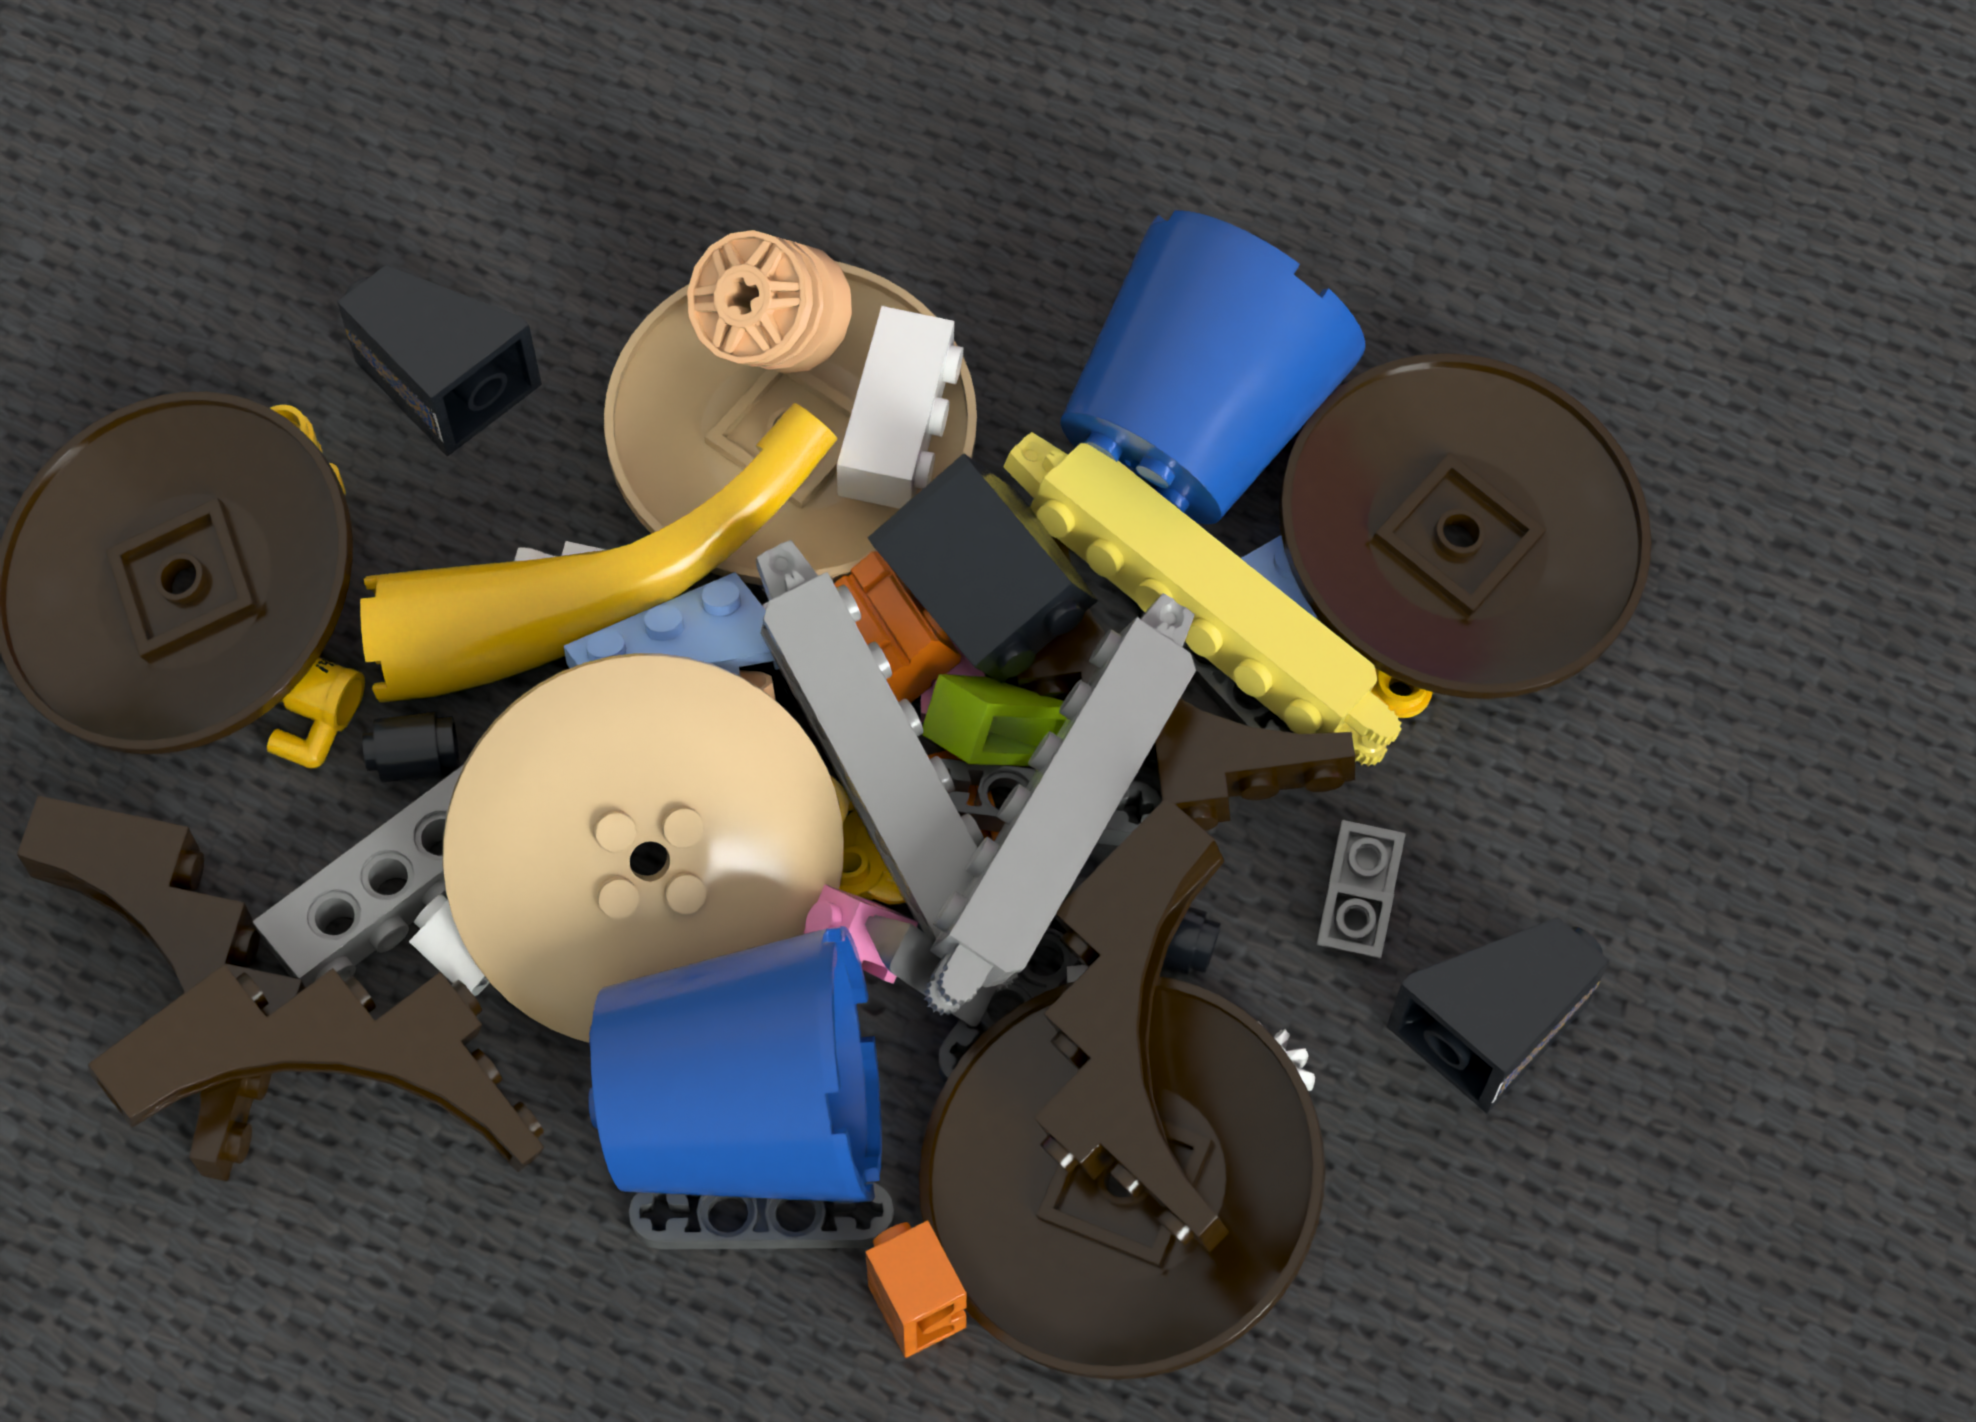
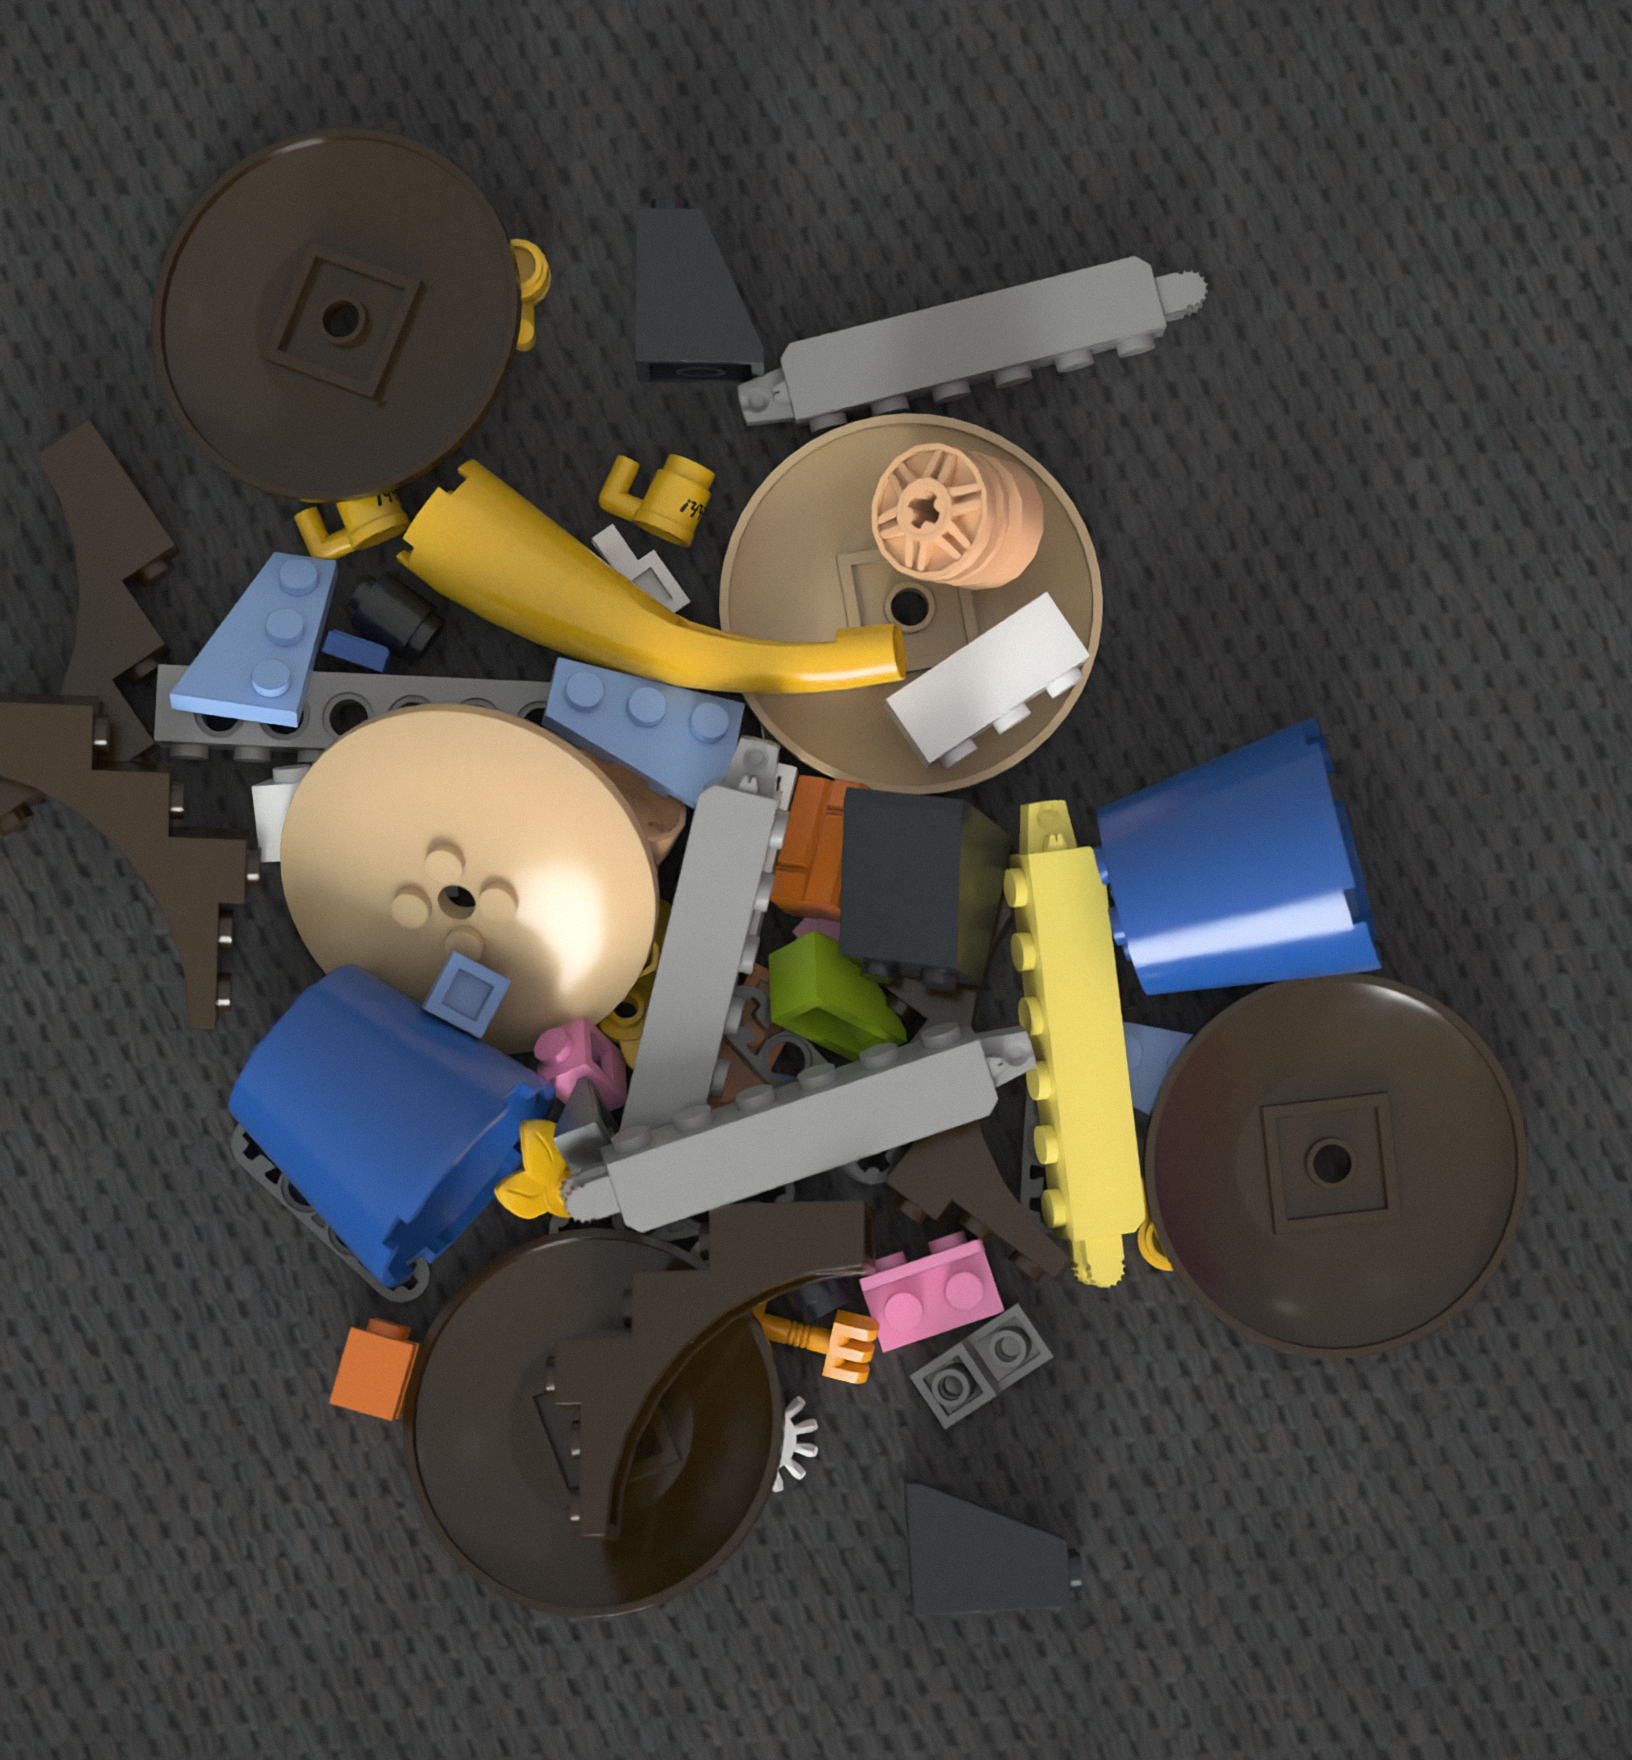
camera: 40 degrees right, 20 degrees up
(325, 841) = (265, 647): none -> light blue wing
(401, 789) = (357, 653): none -> blue tile
(549, 504) = (671, 502): none -> yellow piece
(666, 232) = (970, 343): none -> light grey hinge
(719, 920) = (466, 994): none -> medium blue tile
(912, 1028) = (535, 1187): none -> yellow plate
(1243, 964) = (845, 1346): none -> light orange hinge
(1270, 872) = (931, 1292): none -> bright pink bracket

